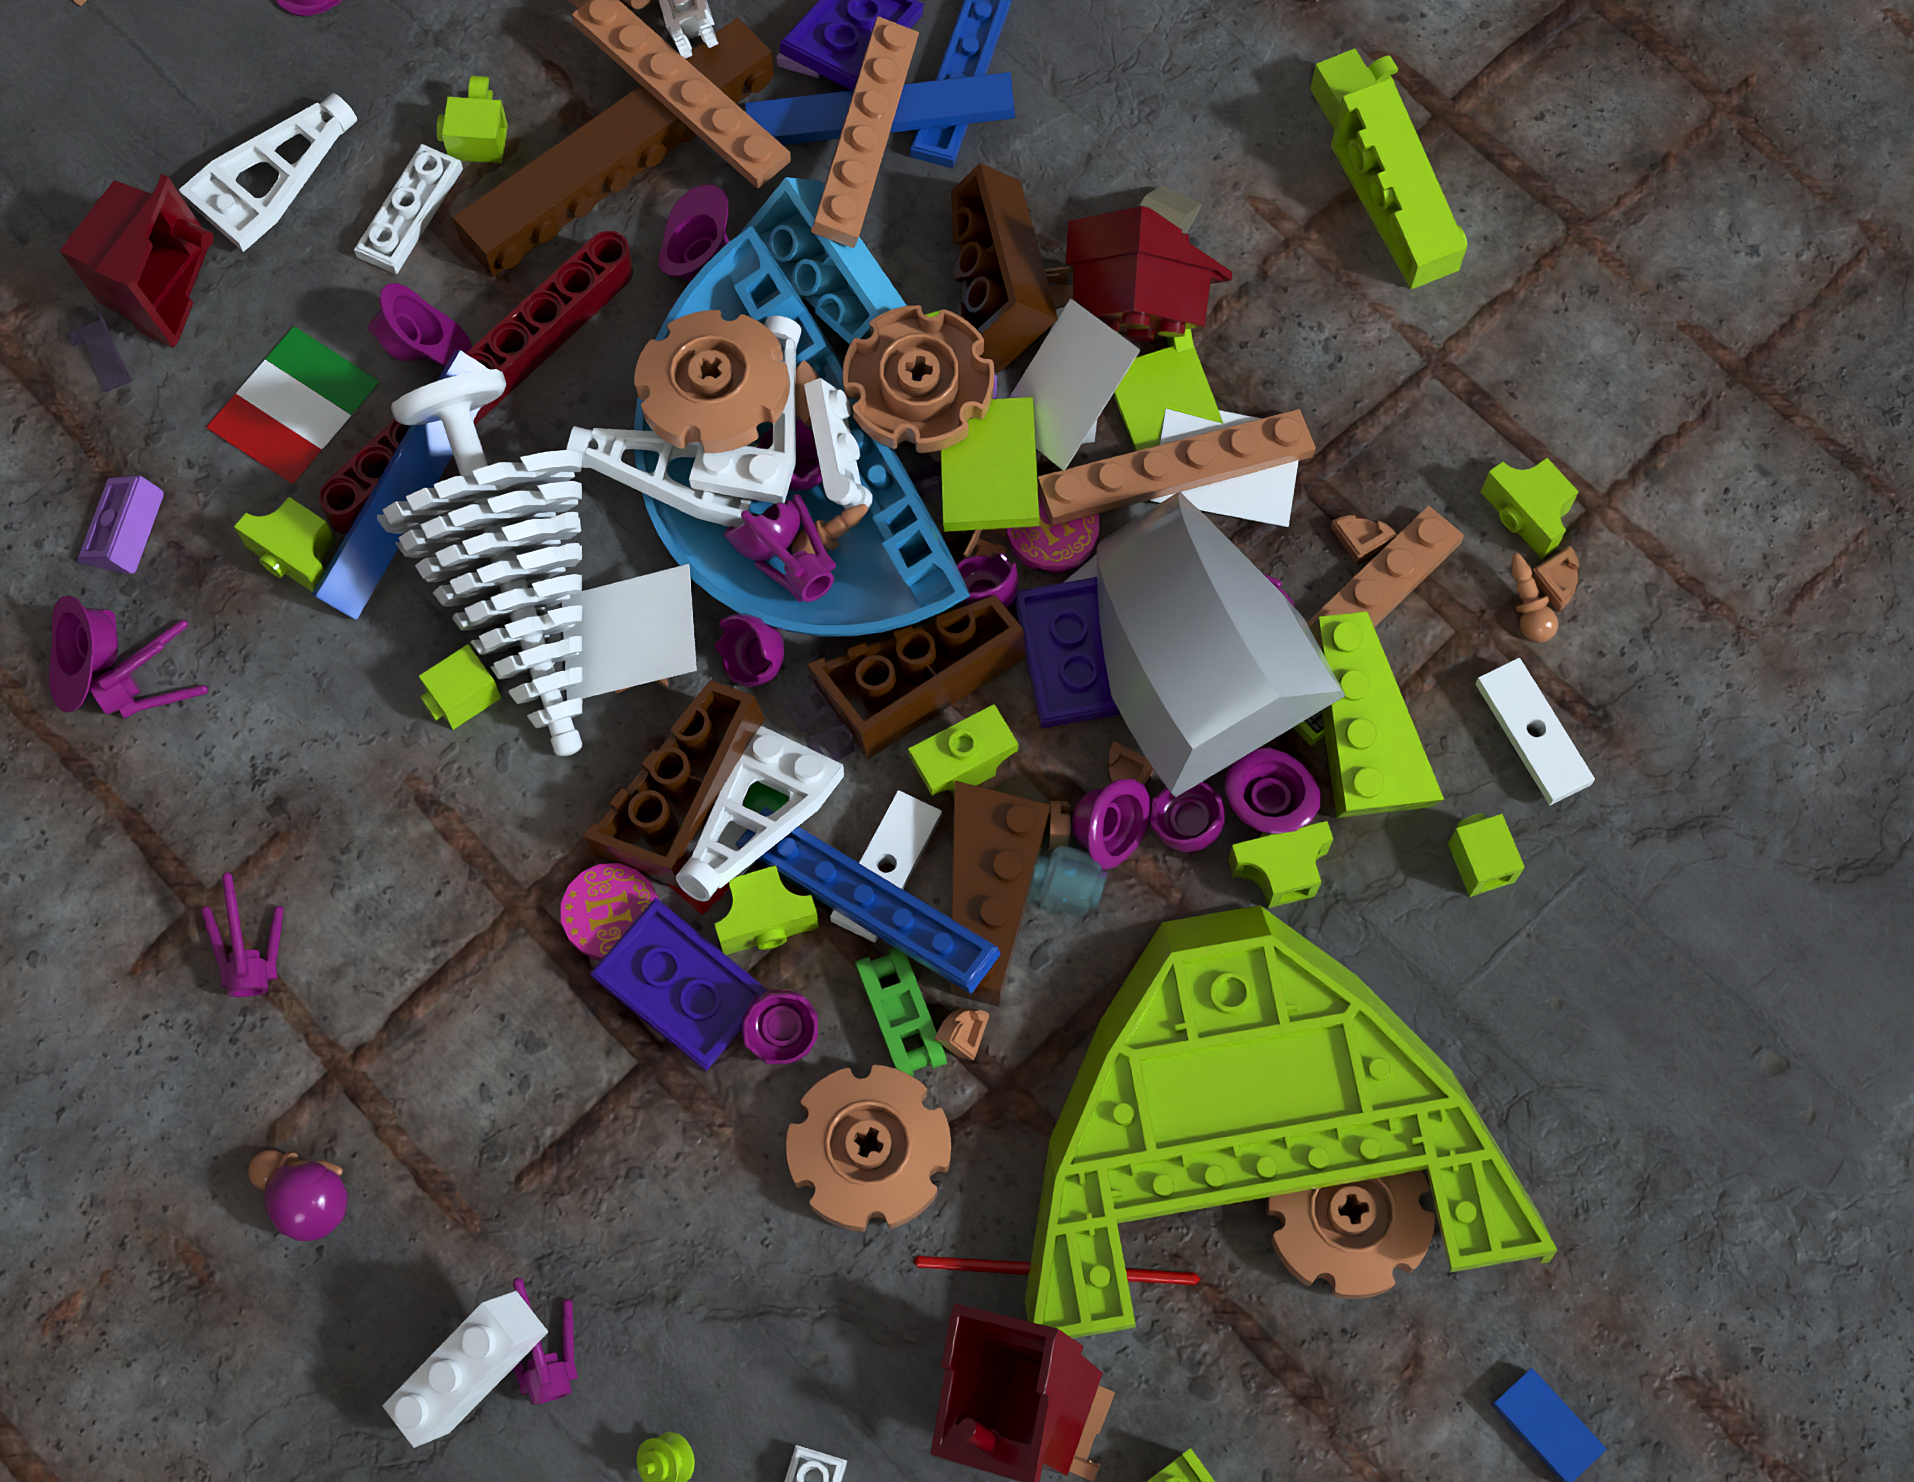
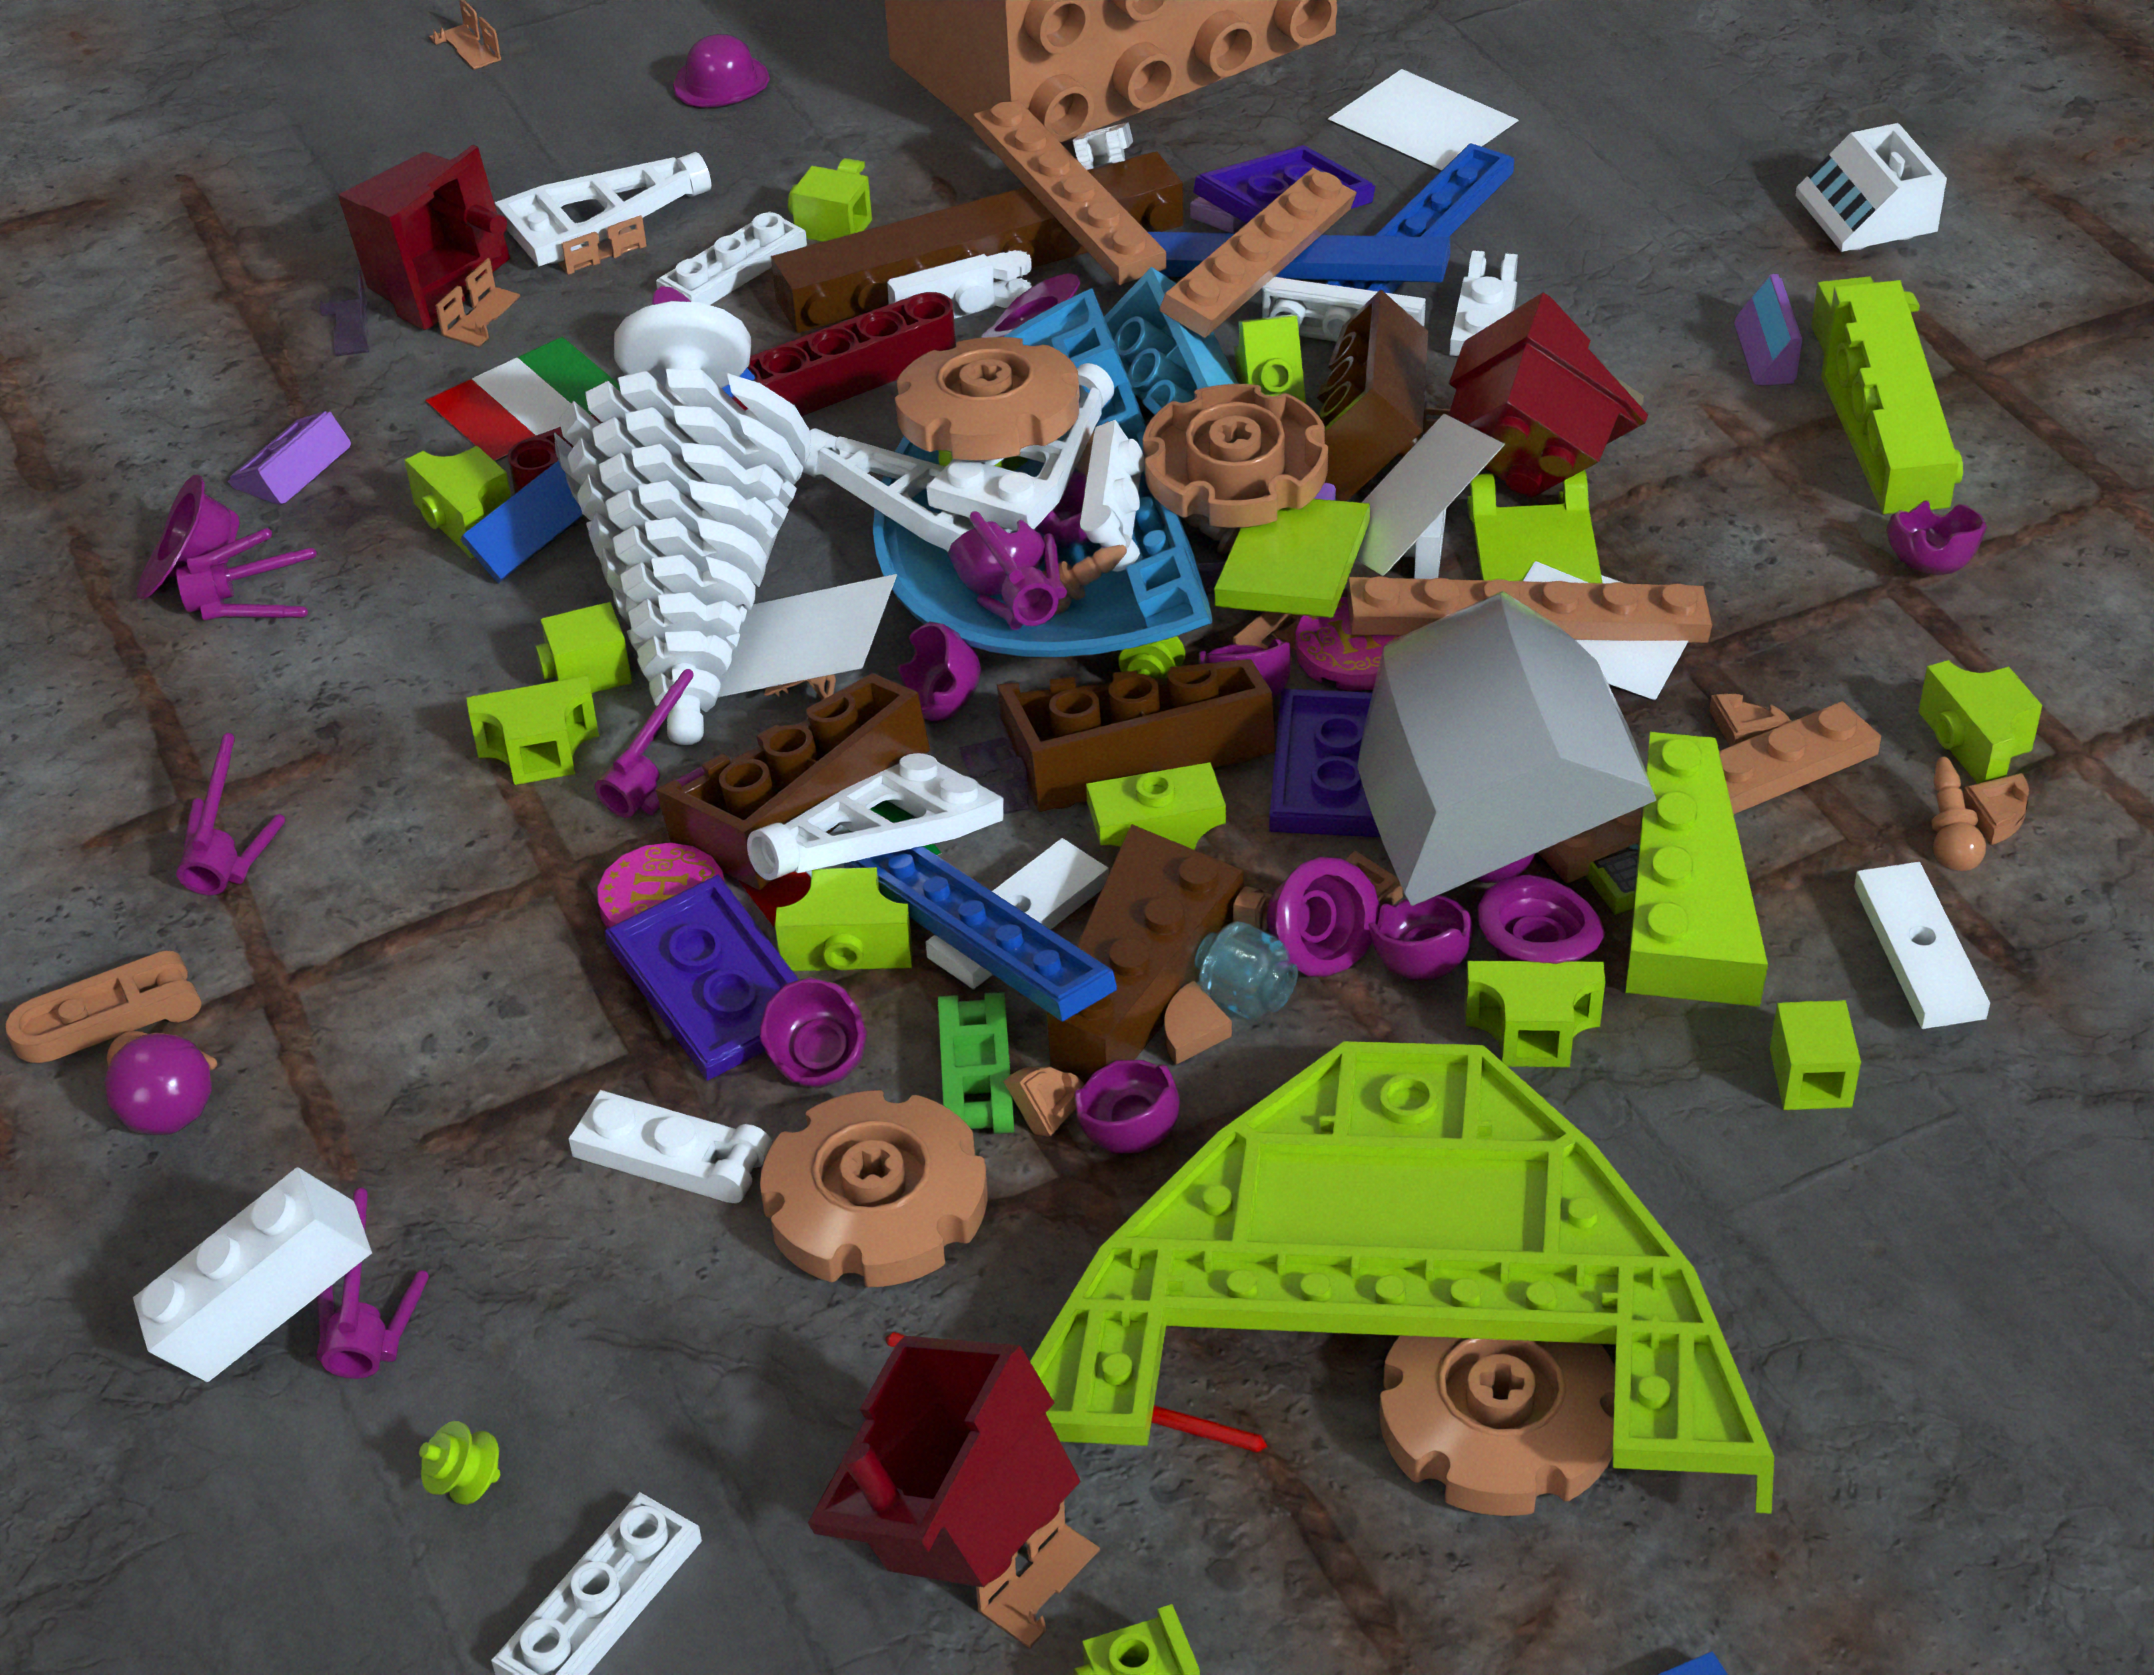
camera: 20 degrees right, 25 degrees down
(217, 308) = (472, 327): none -> nougat piece
(226, 1136) = (103, 1008): none -> nougat plate
(301, 204) = (618, 243): none -> nougat piece
(450, 776) = (534, 727): none -> lime brick
(546, 811) = (633, 777): none -> magenta plant
(621, 205) = (969, 282): none -> white hinge
(703, 1144) = (670, 1146): none -> white plate
(911, 262) = (1271, 355): none -> lime brick
(935, 169) = (1325, 307): none -> white tile
(1025, 1028) = (1128, 1106): none -> magenta hair
(1043, 932) = (1194, 1023): none -> nougat tile
(1052, 132) = (1483, 298): none -> white hinge
(1284, 116) = (1770, 335): none -> medium lavender slope
(1462, 320) = (1936, 541): none -> magenta hair

